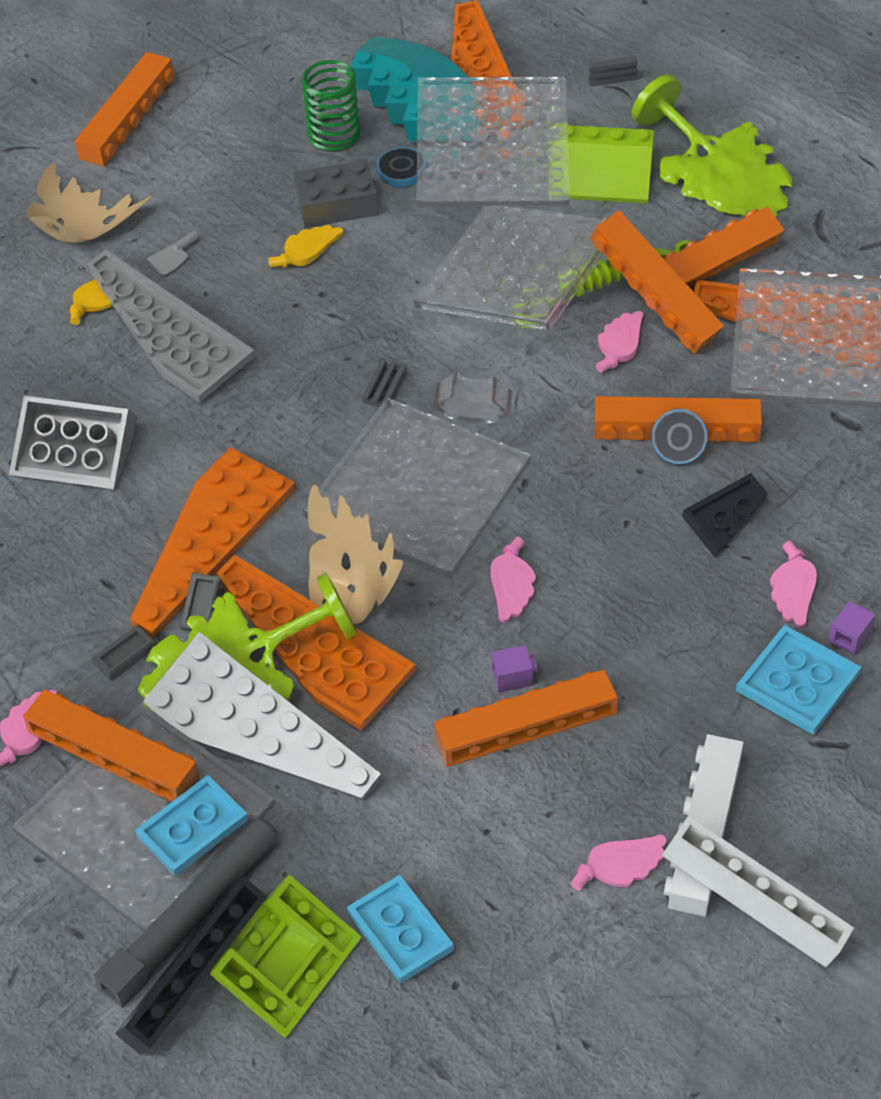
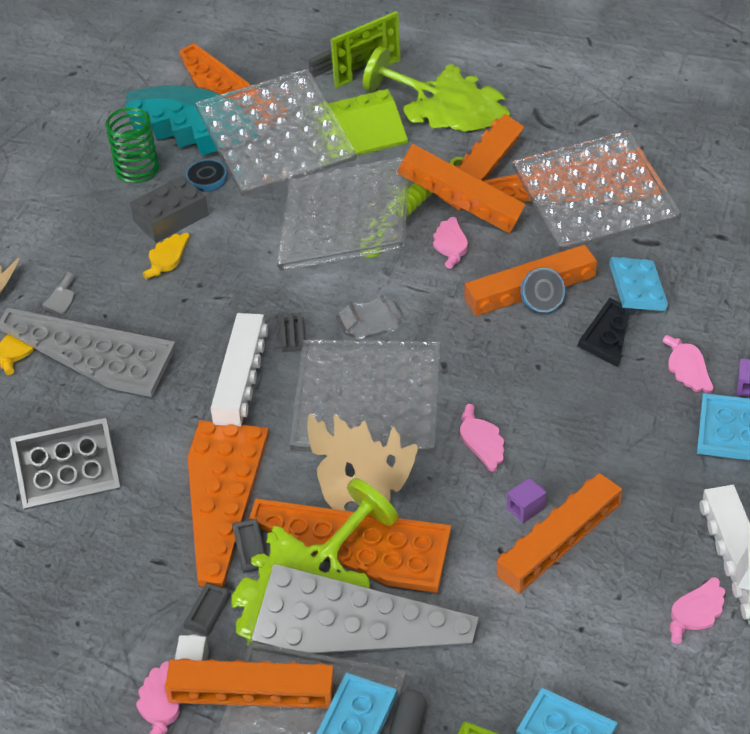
camera: 25 degrees left, 5 degrees down
(81, 689) = (192, 647): none -> white brick
(299, 405) = (239, 370): none -> white brick
(638, 65) = (357, 45): none -> lime slope
(796, 468) = (638, 284): none -> medium azure plate

